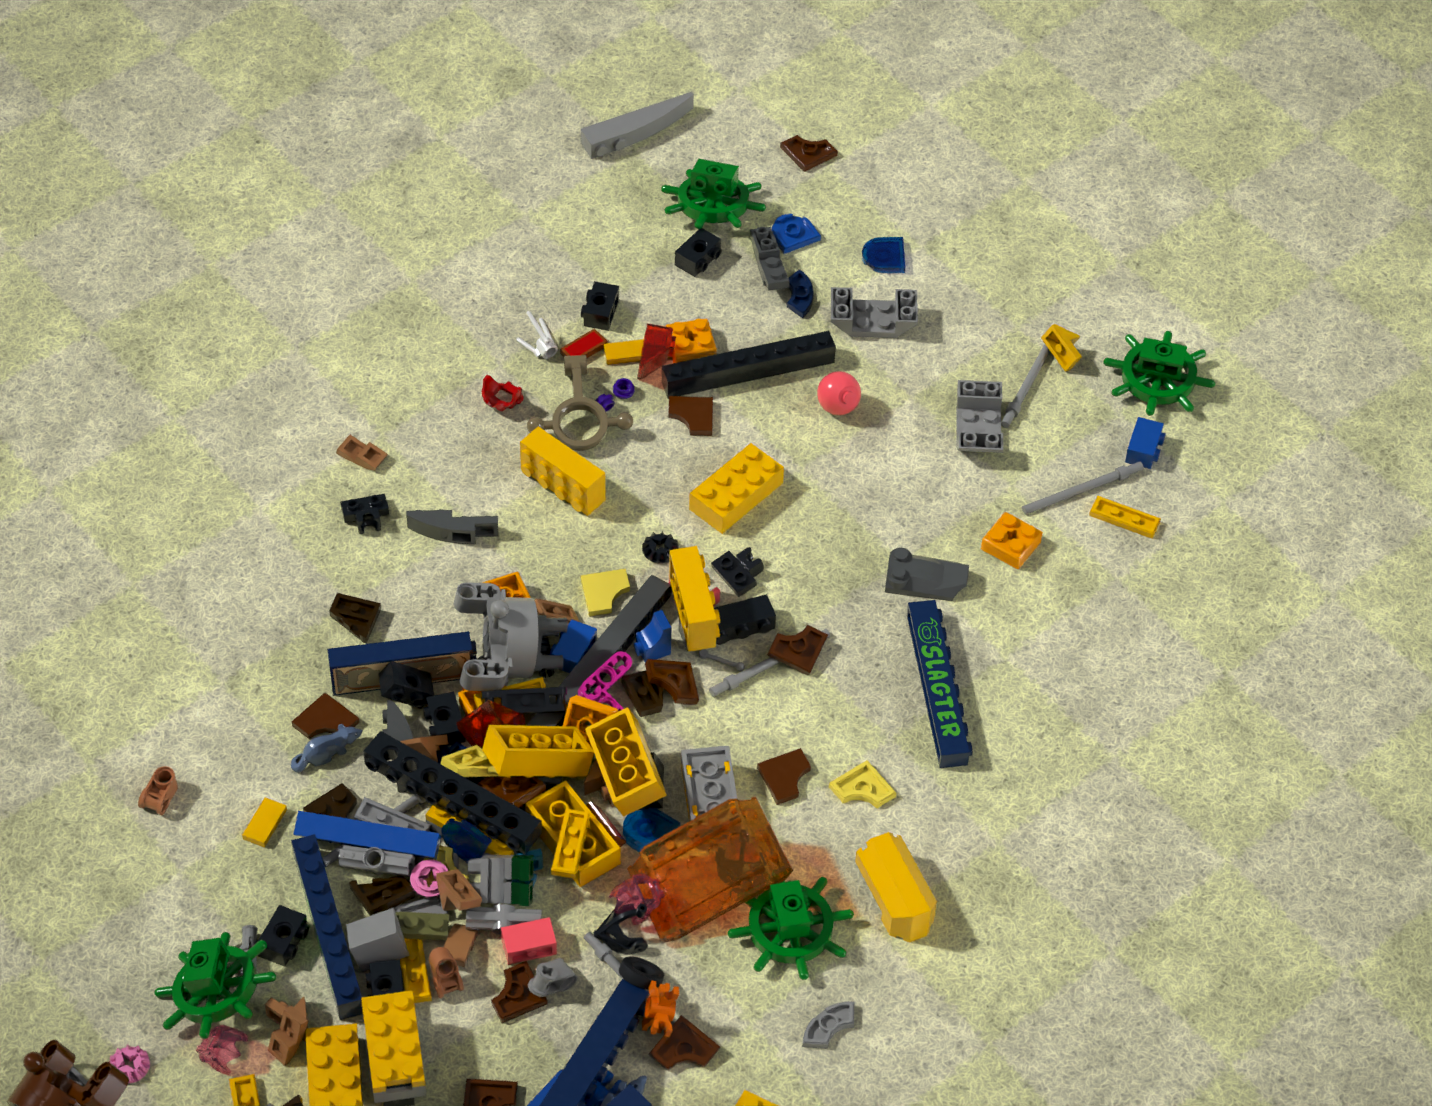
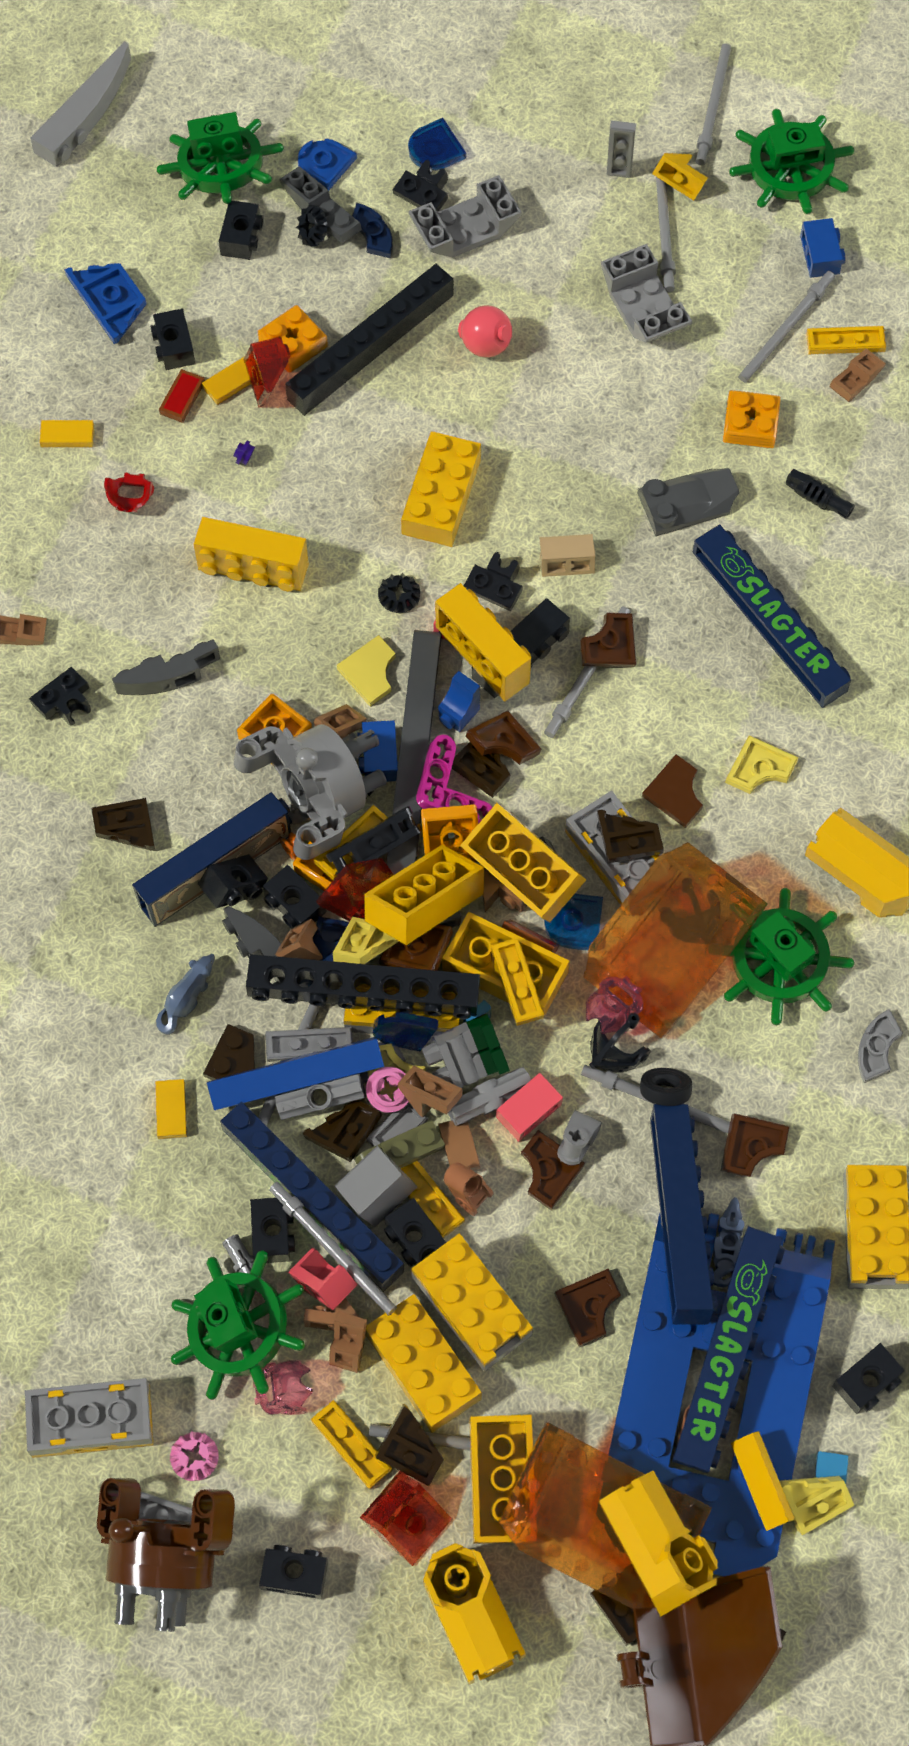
camera: 25 degrees left, 15 degrees up
(69, 997) = (88, 1418): none -> light grey piece
(158, 794) = (38, 1136): nougat piece -> none
(297, 982) = (322, 1280): none -> coral panel
(306, 924) = (294, 1208): none -> light grey bar
(324, 717) = (161, 956): reddish brown tile -> none
(482, 338) = (66, 433): none -> yellow tile
(545, 344) = (140, 412): white plant -> none
(572, 259) = (109, 296): none -> blue wing
(576, 367) = (192, 424): dark tan piece -> none
(625, 384) = (251, 420): dark purple plate -> none
(660, 1008) = (713, 1119): orange pin -> none
(693, 412) = (343, 420): reddish brown tile -> none
(703, 654) = (559, 691): light grey hinge -> none
(717, 780) = (628, 838): none -> dark brown wing
(753, 270) = (315, 235): none -> black gear
(804, 574) = (567, 555): none -> tan hinge
(808, 153) = (284, 61): reddish brown tile -> none
(859, 278) = (423, 187): none -> black plate
(1022, 307) = (621, 149): none -> light grey tile
(1032, 615) = (818, 493): none -> black hinge
(1101, 332) = (705, 139): none -> light grey bar
(1121, 544) = (858, 375): none -> medium nougat slope

